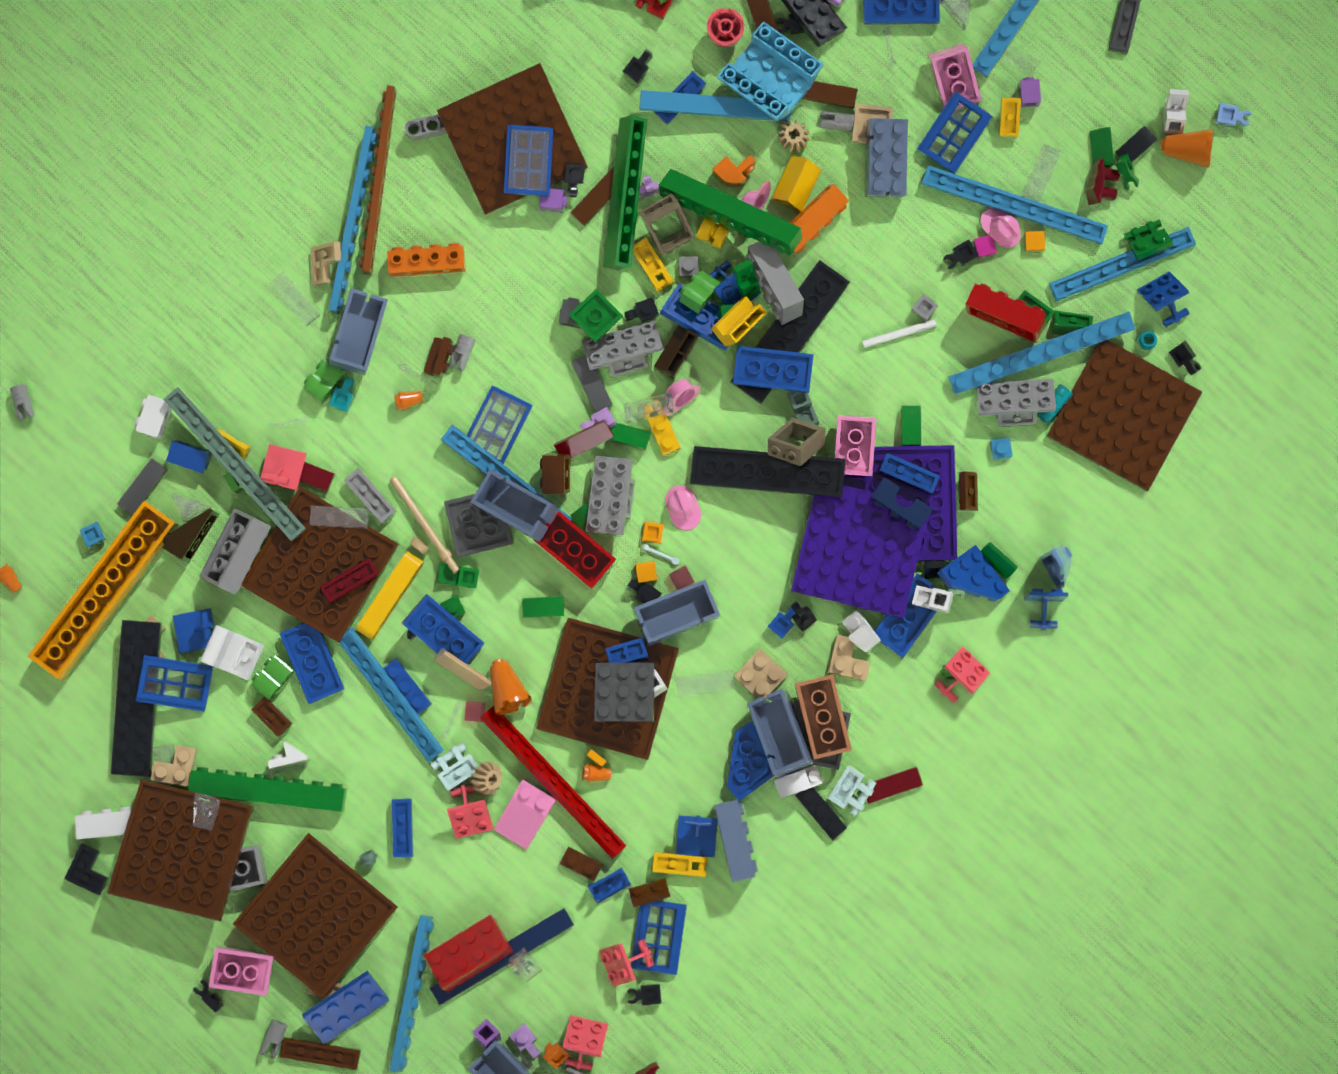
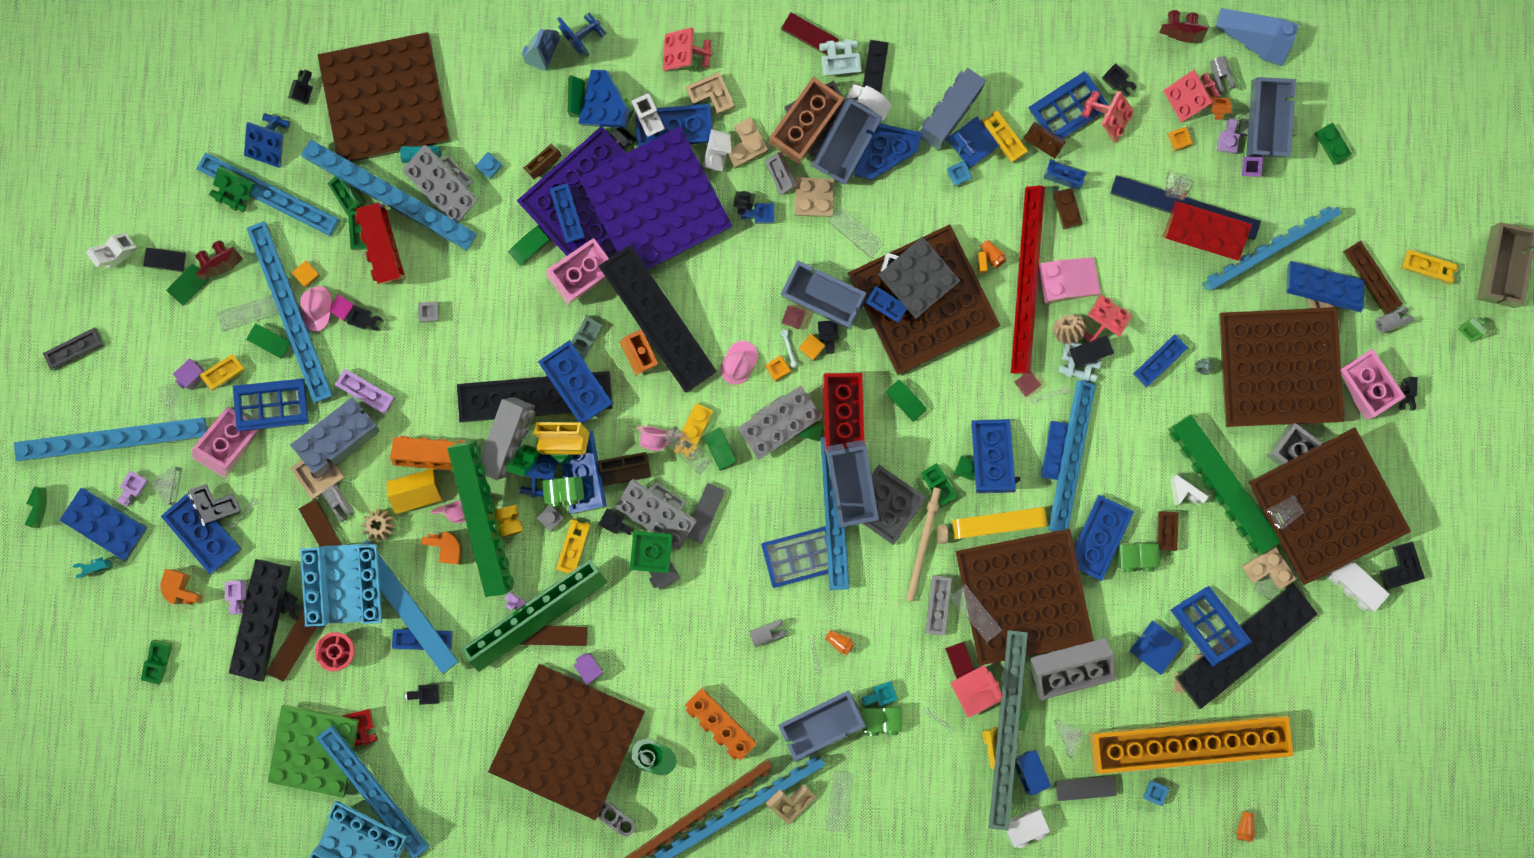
camera: 135 degrees left, 0 degrees up
(187, 538) = (1097, 714): dark brown slope -> none
(232, 652) = (1148, 602): white piece -> none
(349, 580) = (1016, 561): dark red tile -> none
(438, 357) = (787, 648): reddish brown bracket -> none
(445, 191) = (653, 757): none -> green piece
(455, 779) = (1091, 351): none -> black slope
(462, 670) = (1006, 418): tan slope -> none
(507, 688) = (990, 373): orange cone -> none
(528, 160) = (573, 712): clear piece -> none
(555, 473) = (798, 478): reddish brown brick -> none
(558, 1002) = (1180, 138): none -> light orange tile
(573, 175) = (556, 668): black plate -> none
(585, 439) = (754, 479): tile -> none
(598, 416) = (727, 479): lavender plate -> none
(657, 211) = (527, 574): dark tan window -> none
(681, 803) = (959, 173): none -> dark azure plate
(753, 435) = (638, 352): none -> orange brick
(800, 665) = (781, 173): none -> light grey plate
(811, 435) = (603, 319): dark tan window -> none
(886, 497) = (596, 180): dark blue arch -> none
(899, 333) = (466, 315): white bar -> none
(904, 210) = (365, 391): none -> lavender plate
(910, 24) = (212, 510): none -> plate
(911, 672) = (711, 88): none -> tan plate
(1006, 170) = (268, 340): none -> green slope
(1126, 169) = (189, 251): green plate -> none
(1153, 340) = (306, 127): teal plate -> none
(1190, 147) = (130, 216): orange cone -> none
(1229, 115) = (80, 209): light blue plate -> none

